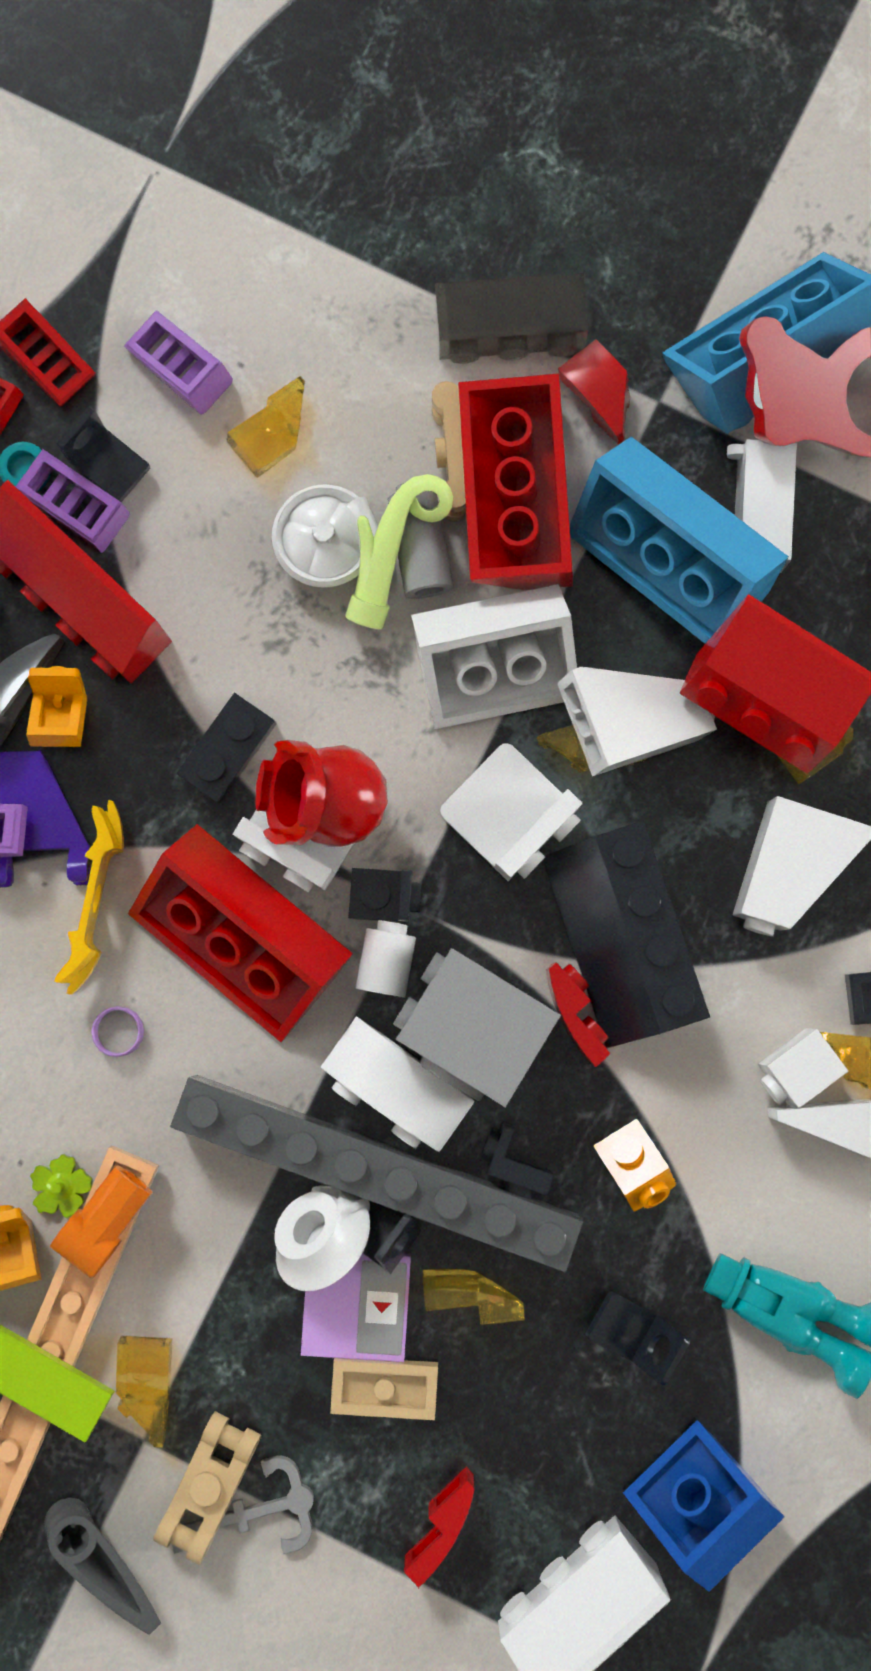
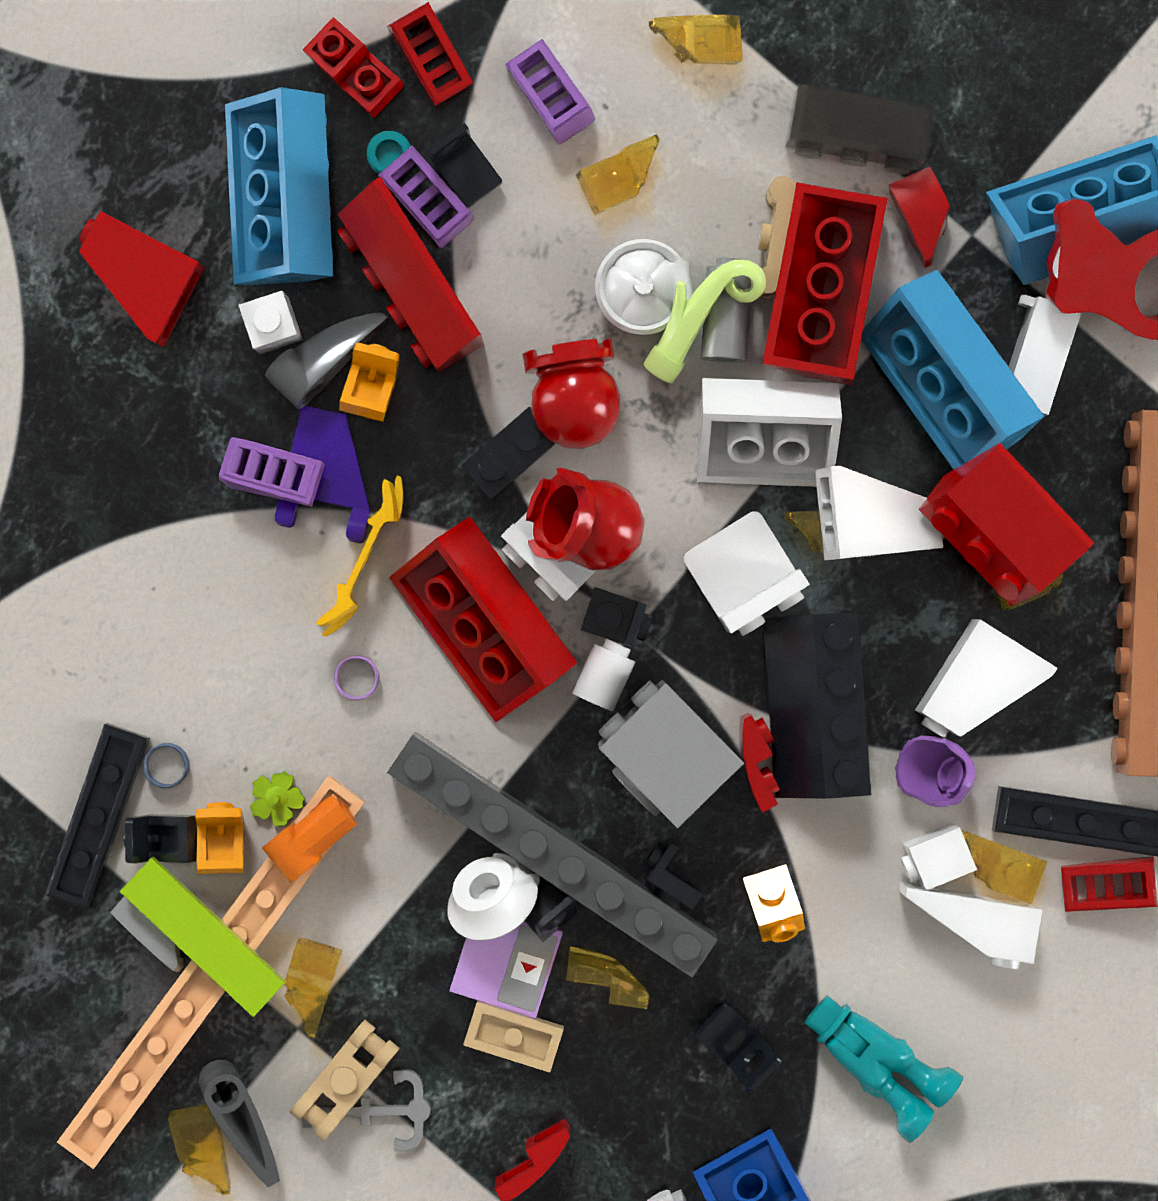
camera: 10 degrees right, 5 degrees up
(63, 1606) = (200, 1145): none -> clear yellow slope
(276, 664) = (574, 396): none -> red tile
(323, 267) = (702, 37): none -> clear yellow slope
(395, 1085) = (587, 784): white brick -> none
(772, 974) = (935, 771): none -> medium lavender hair

